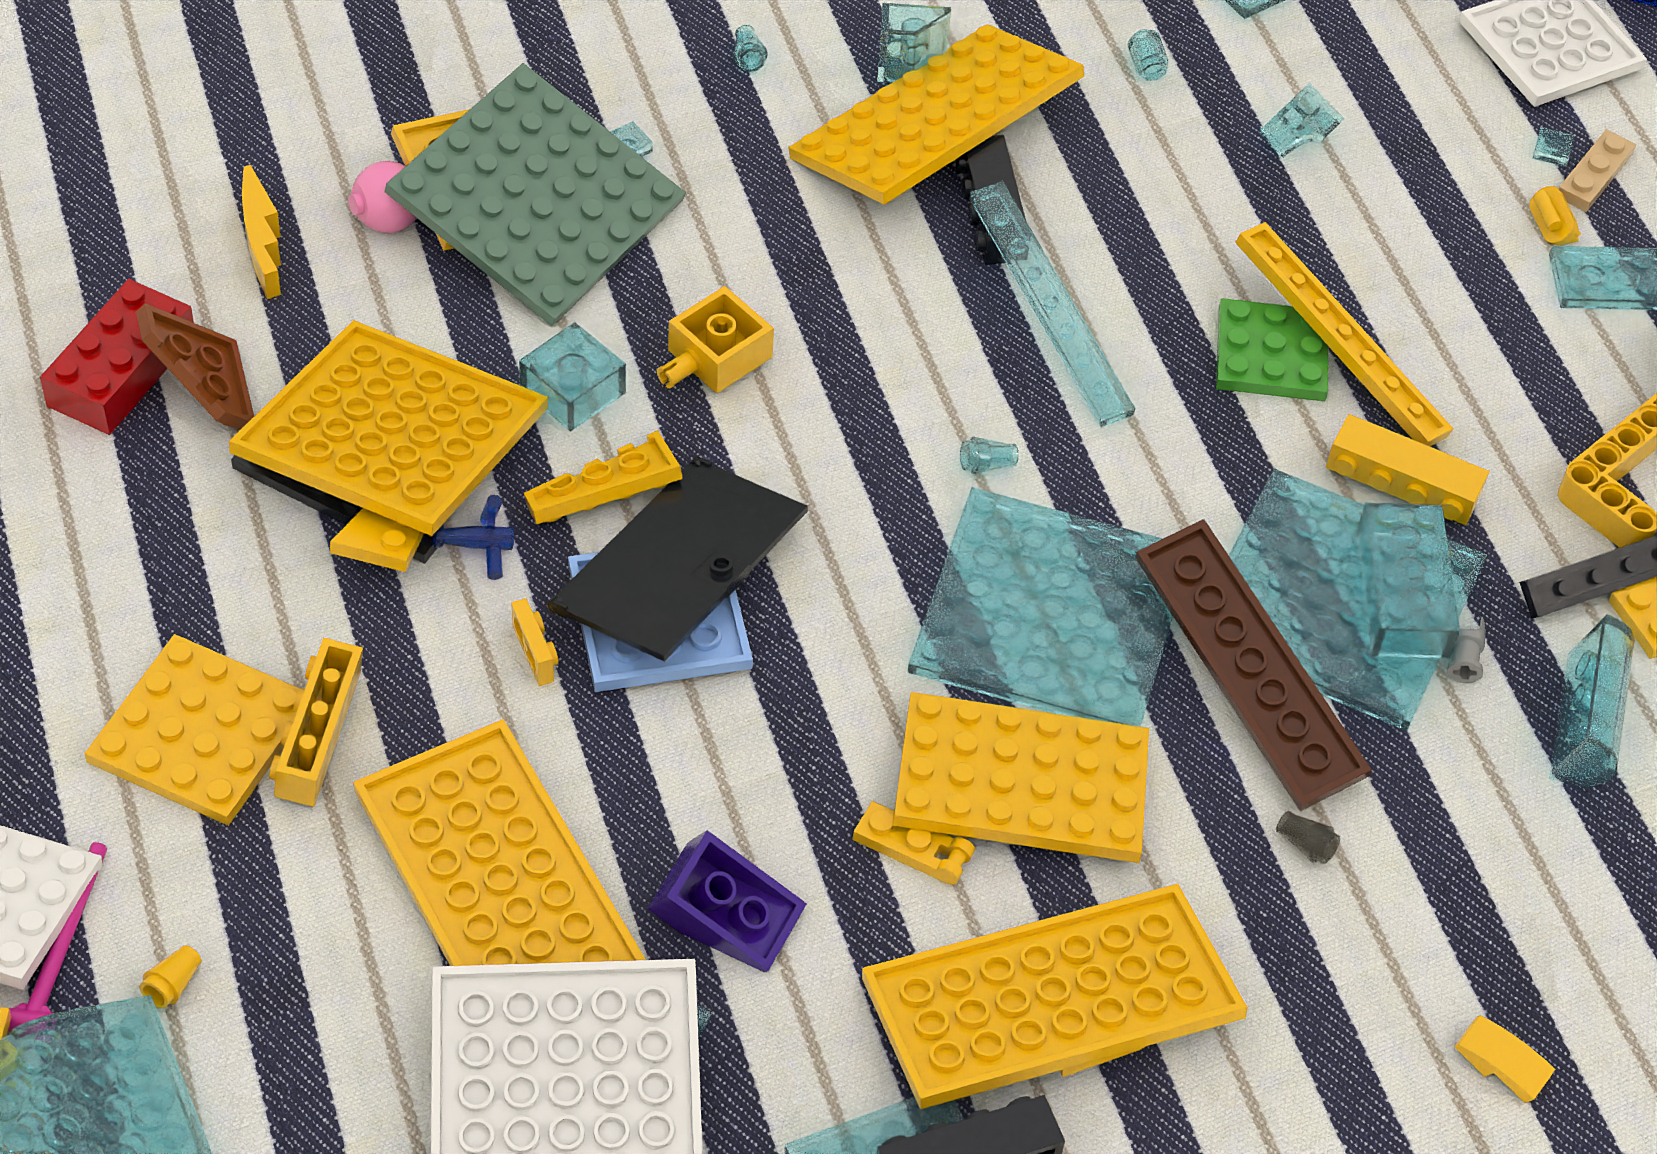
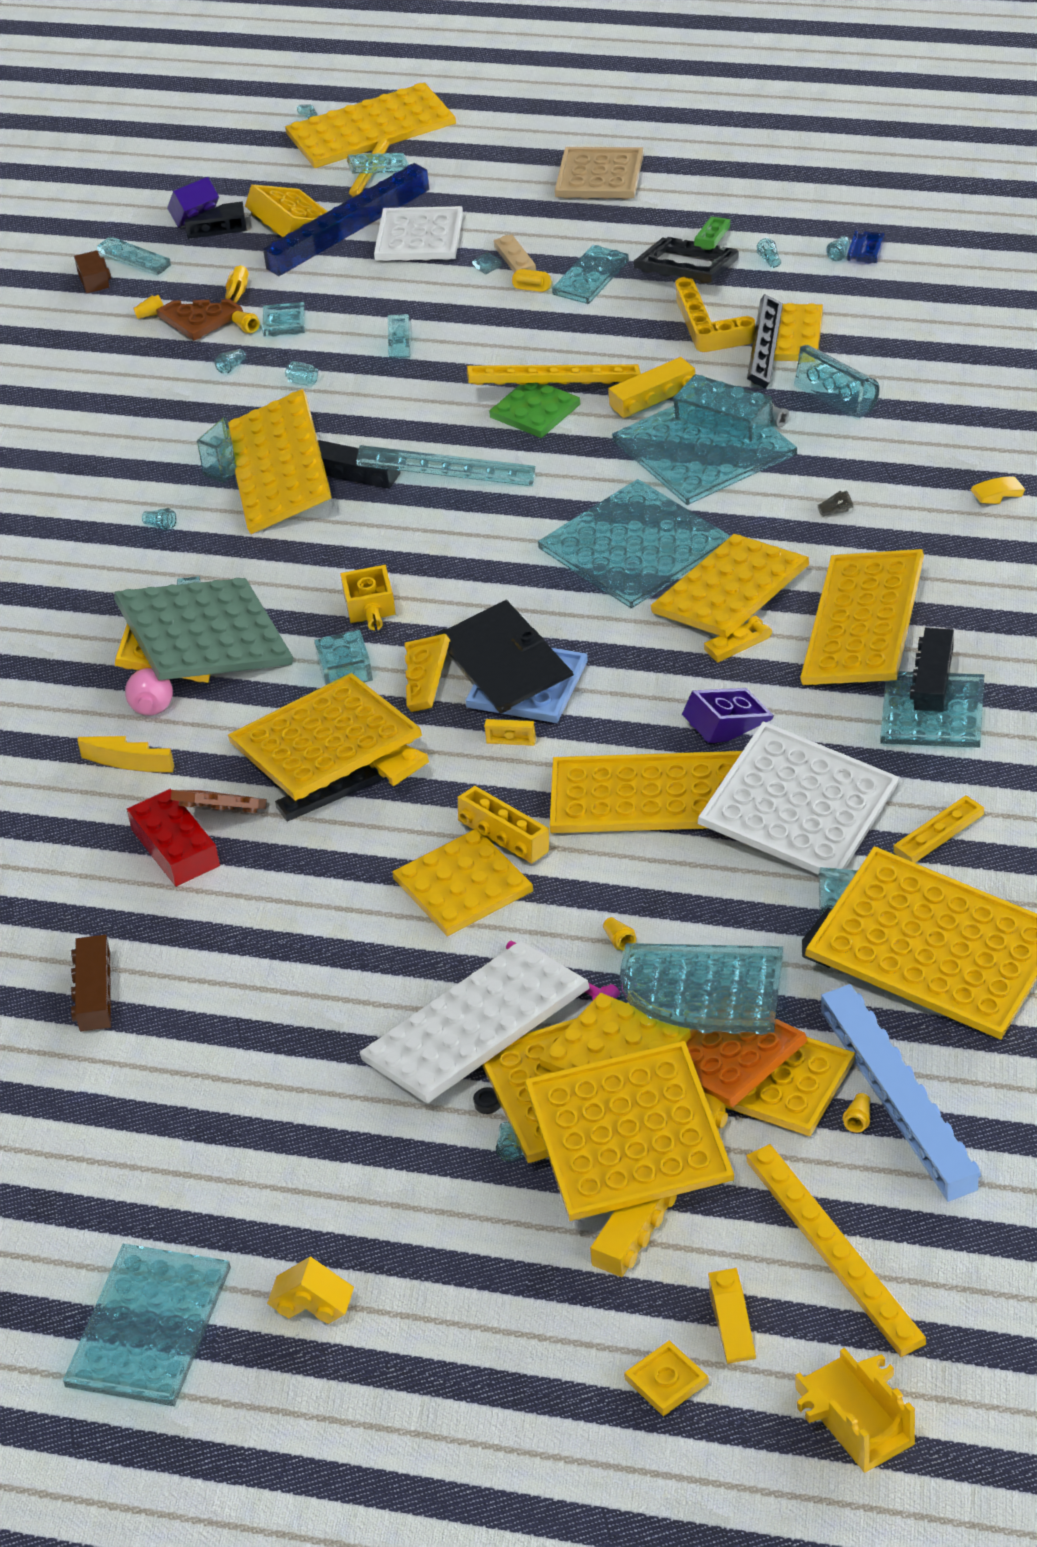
camera: 50 degrees left, 10 degrees down
(481, 537) = (428, 727): clear blue piece -> none
(986, 455) = (521, 529): clear light blue cone -> none
(1253, 665) = (727, 480): reddish brown plate -> none

